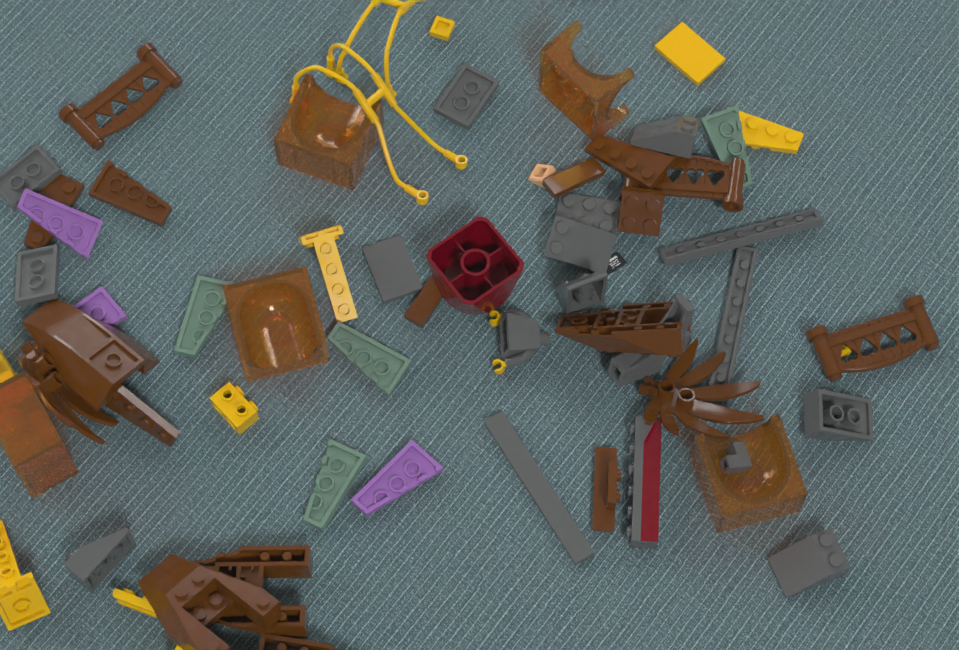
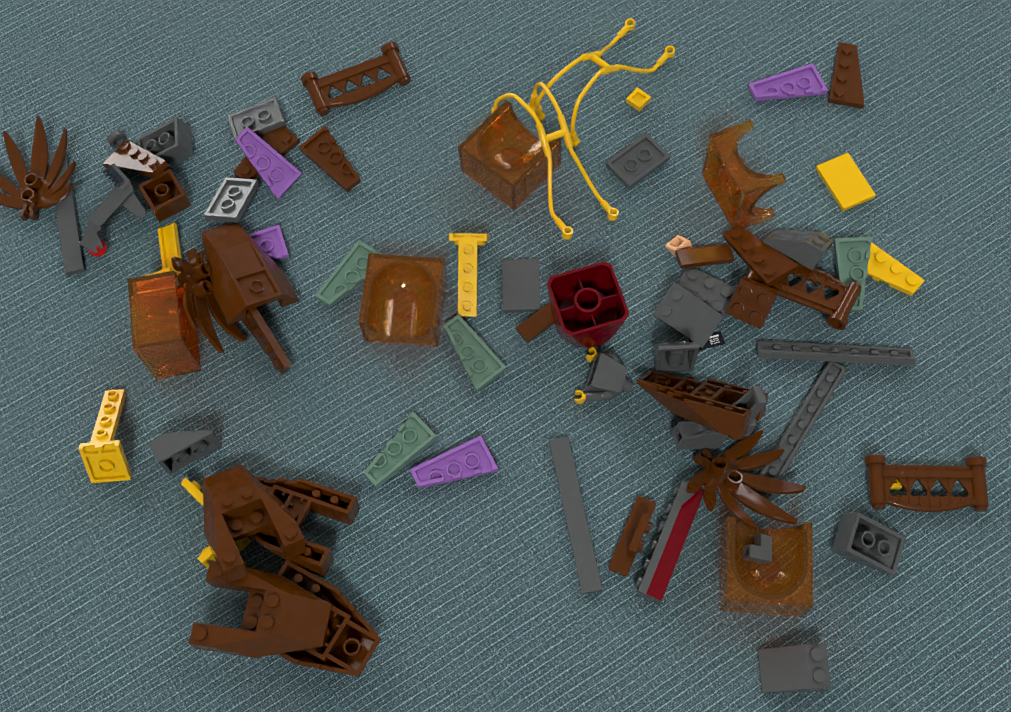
camera: 25 degrees right, 0 degrees up
(234, 407) = (344, 359): yellow brick -> none

